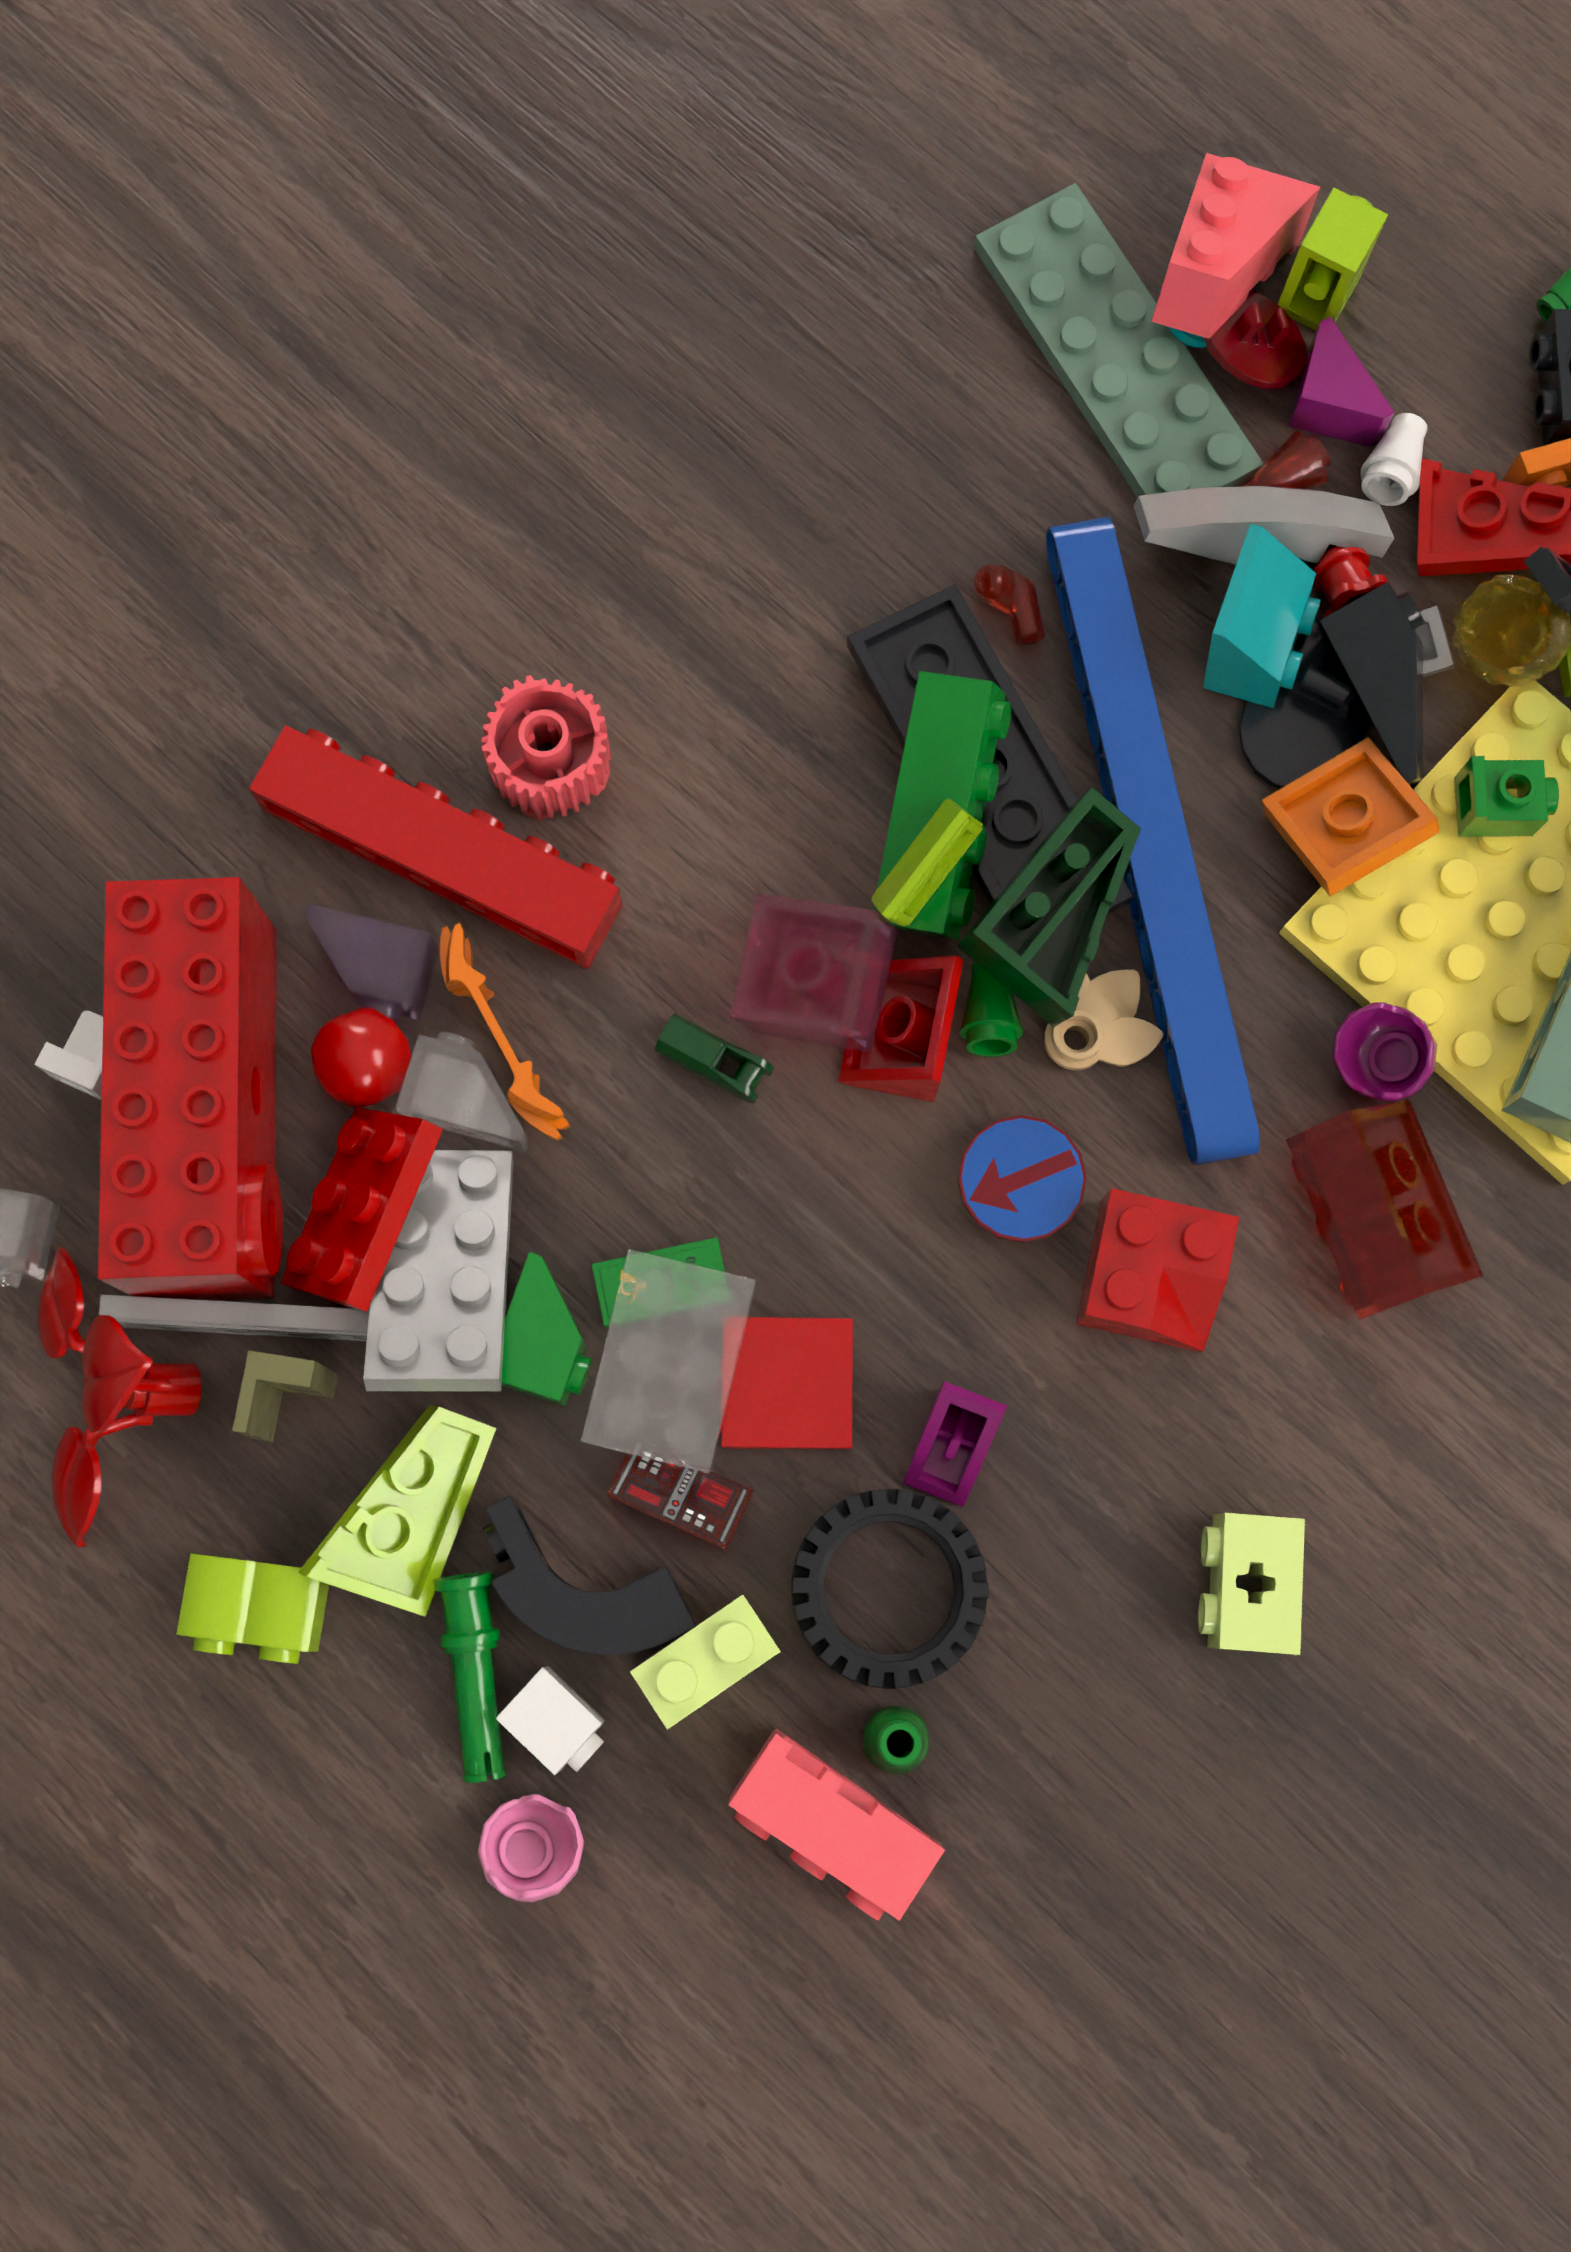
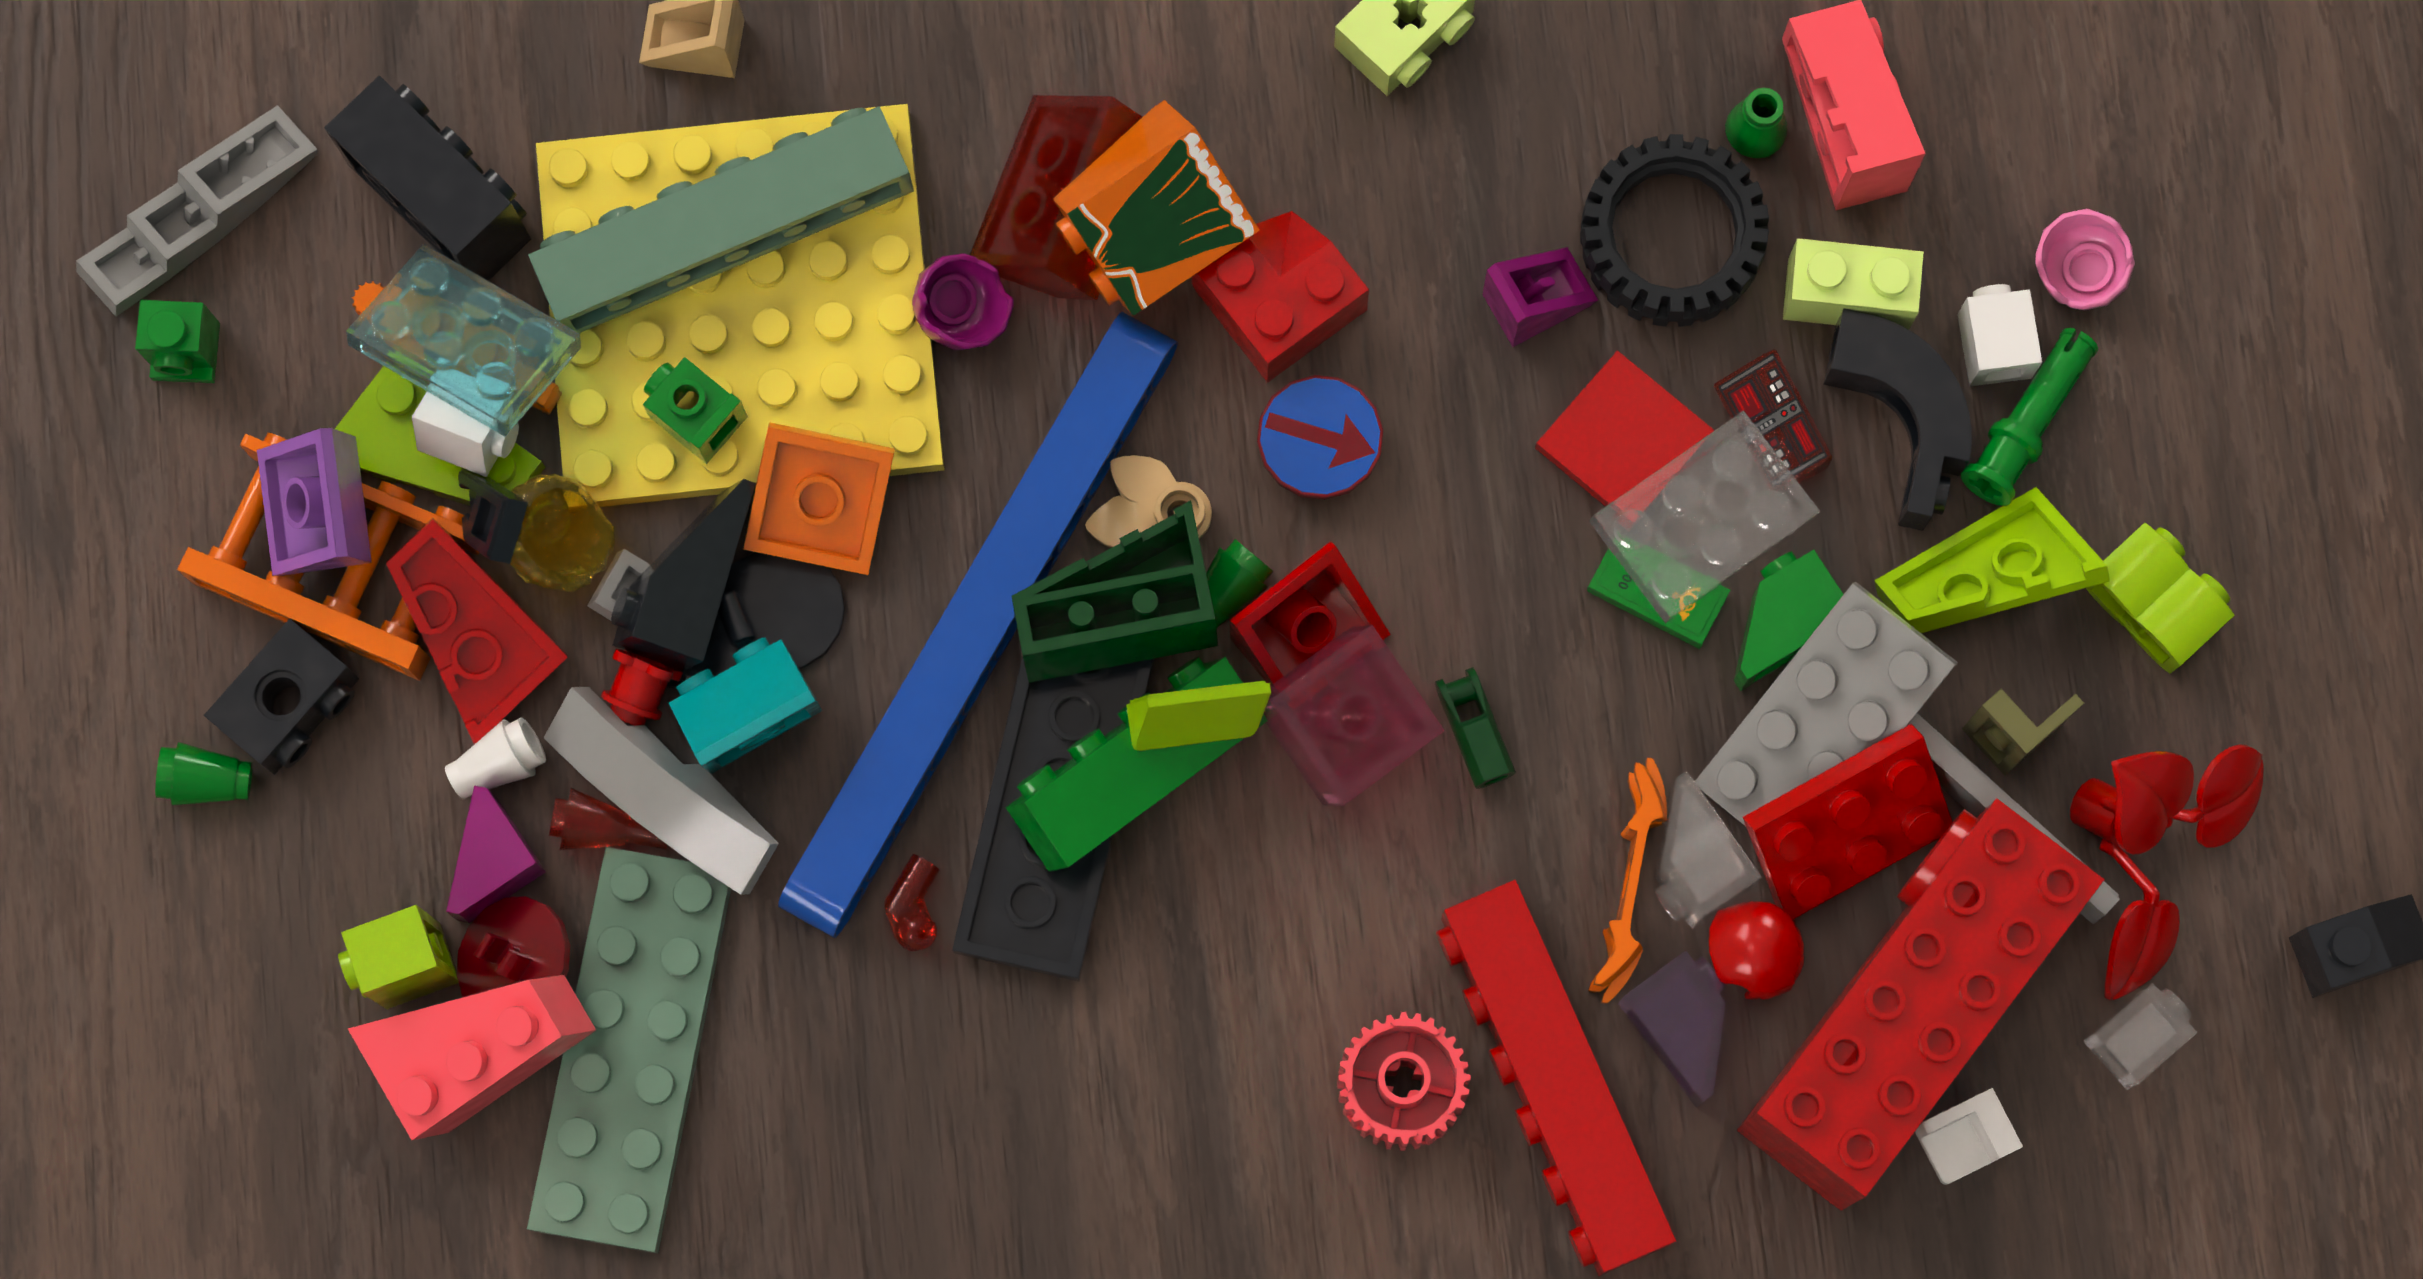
camera: 135 degrees left, 0 degrees up
(1309, 1231) = (1152, 210): none -> slope

